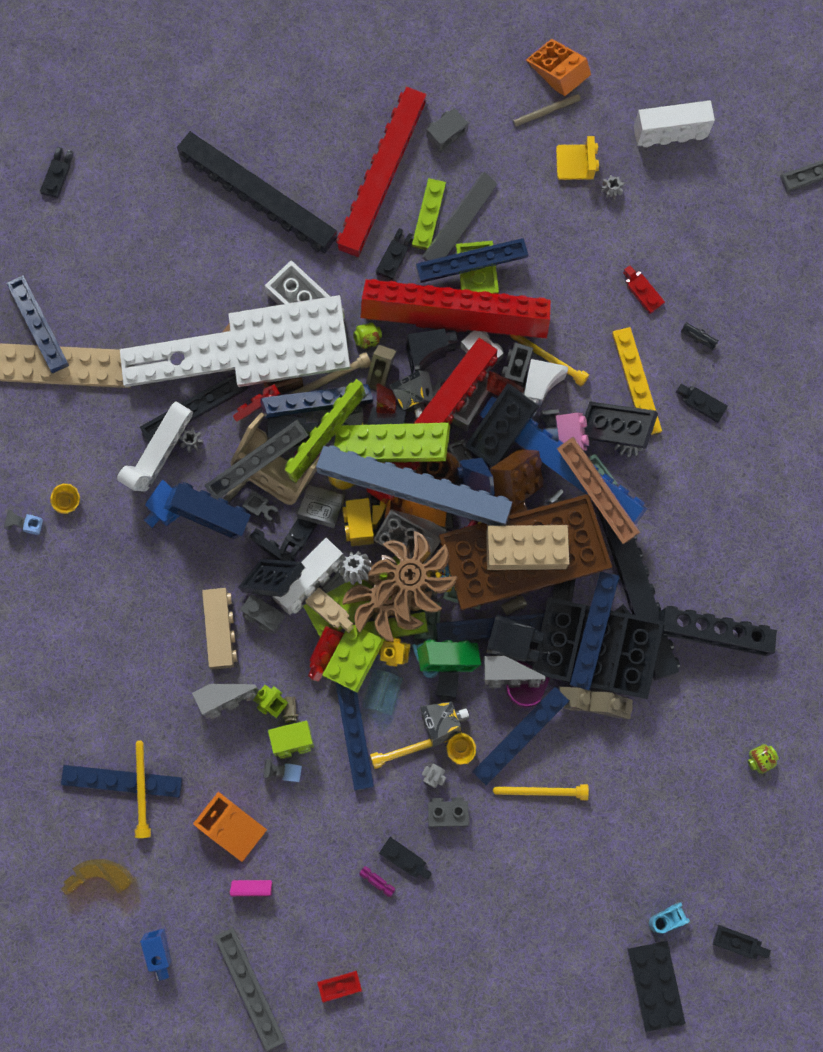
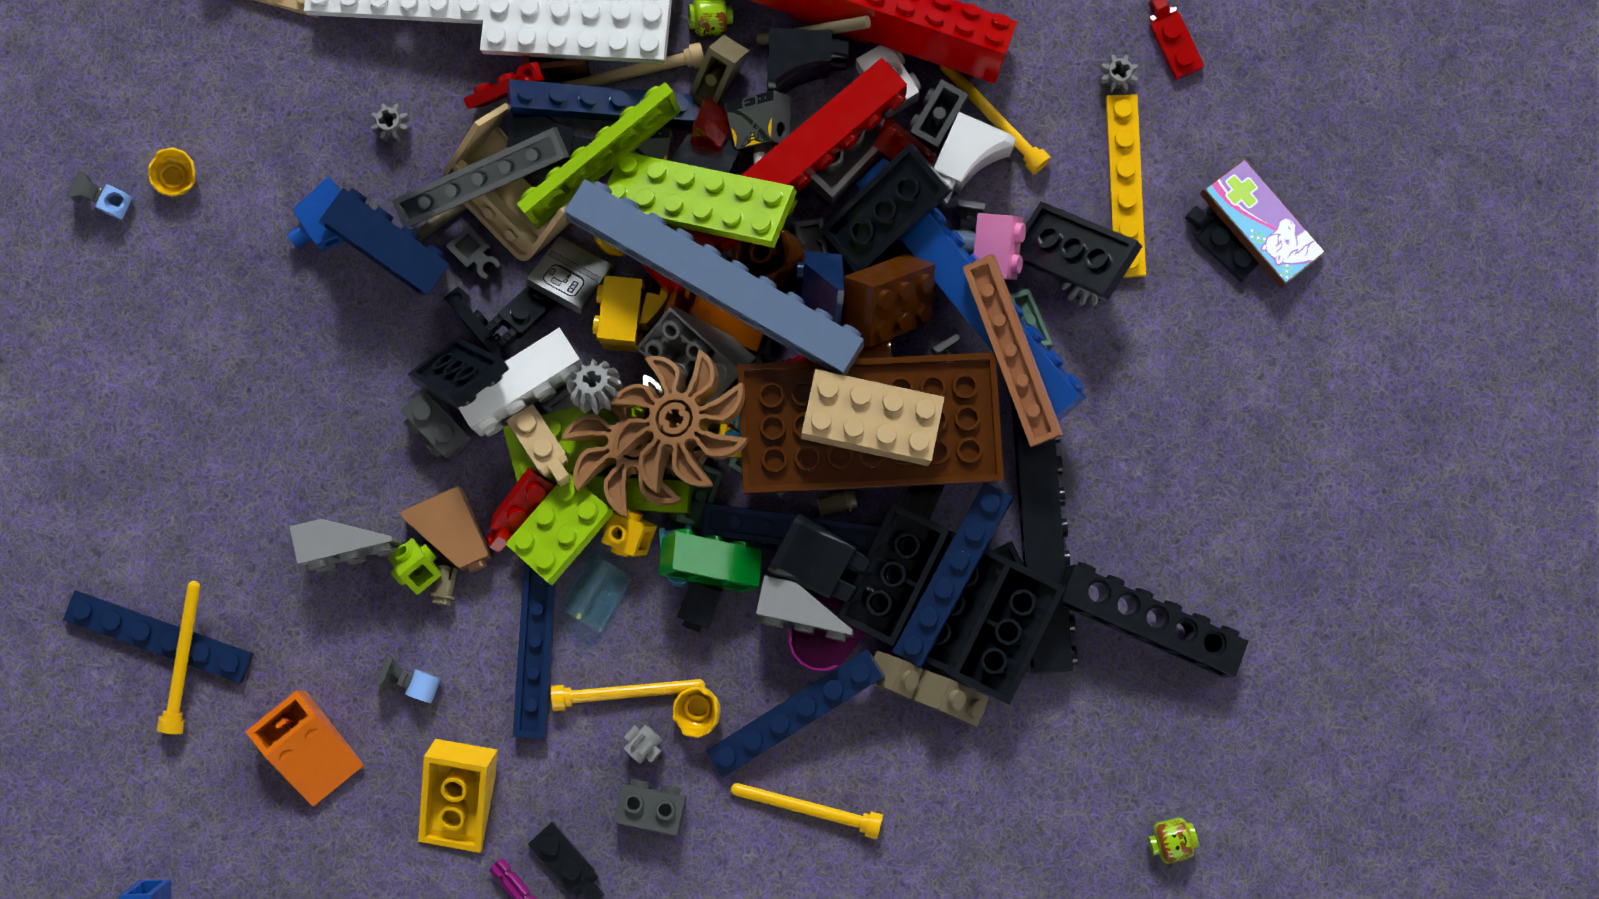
camera: 20 degrees right, 5 degrees up
(110, 870) = (107, 772): clear yellow arch -> none
(157, 451) = (330, 130): white beam -> none
(200, 403) = (402, 74): black plate -> none
(218, 628) = (363, 431): tan brick -> none
(251, 888) = (316, 851): dark pink slope -> none
(286, 674) = (451, 528): none -> medium nougat slope
(291, 739) = (431, 633): lime brick -> none
(328, 834) = (456, 794): none -> yellow slope
(442, 721) = (677, 661): dark grey torso -> none
(447, 325) = (836, 27): none -> dark tan bar
(615, 322) = (1122, 65): none -> light grey gear
(699, 336) = (1246, 134): black pin -> none
(722, 385) = (1262, 223): none -> tile

